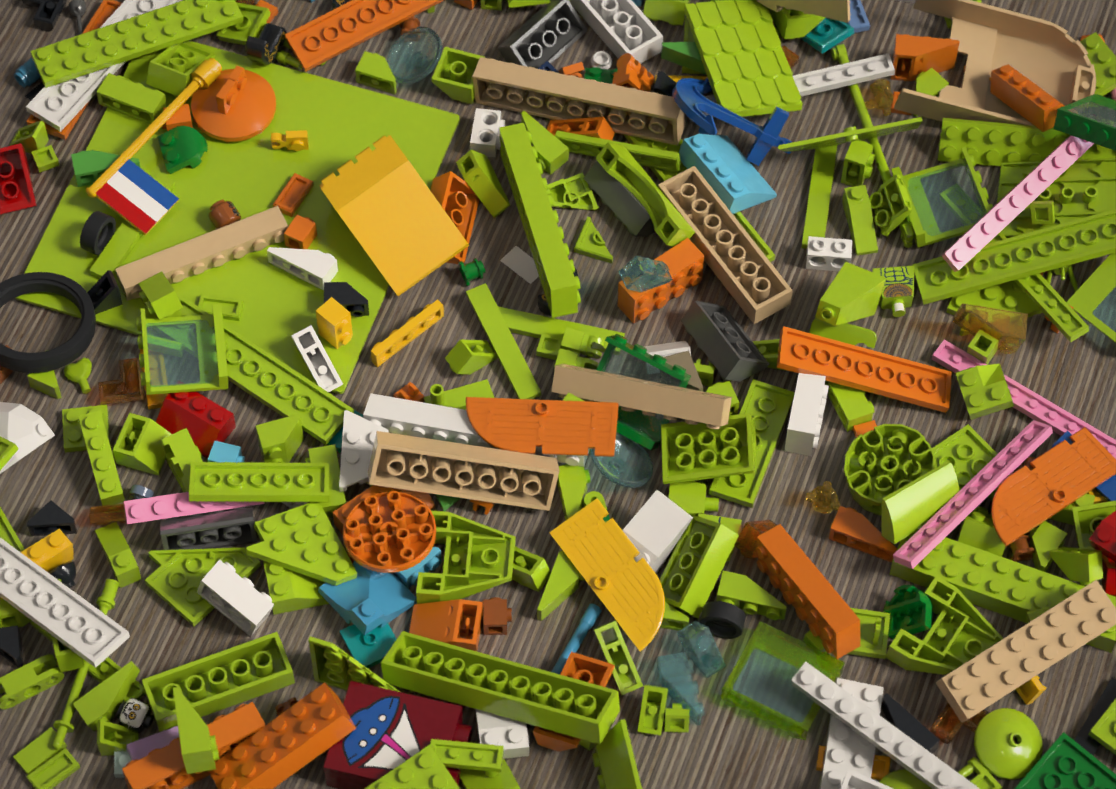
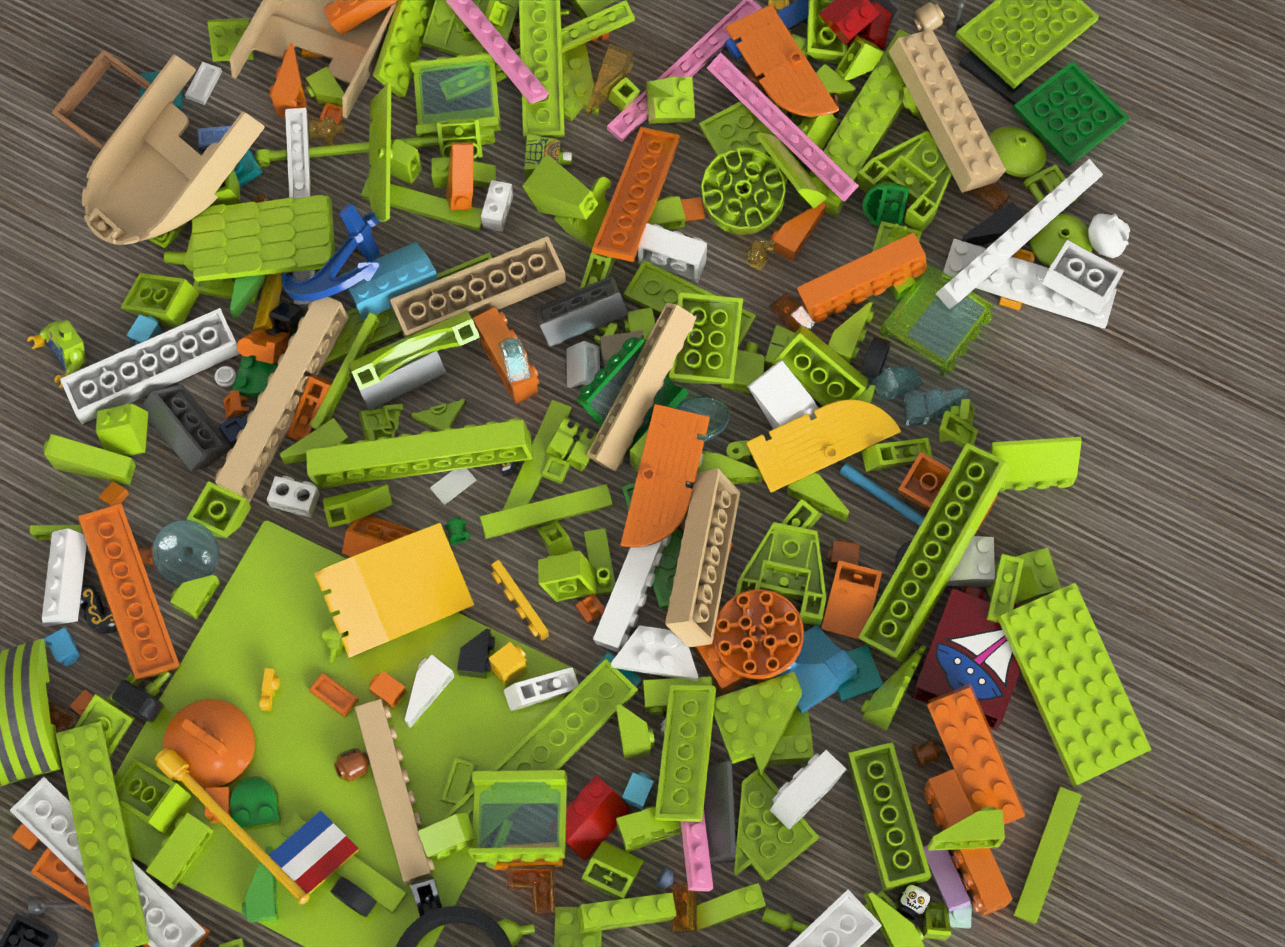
camera: 80 degrees left, 10 degrees up
(433, 361) = (567, 576): none -> lime slope
(845, 210) = (460, 177): none -> orange slope

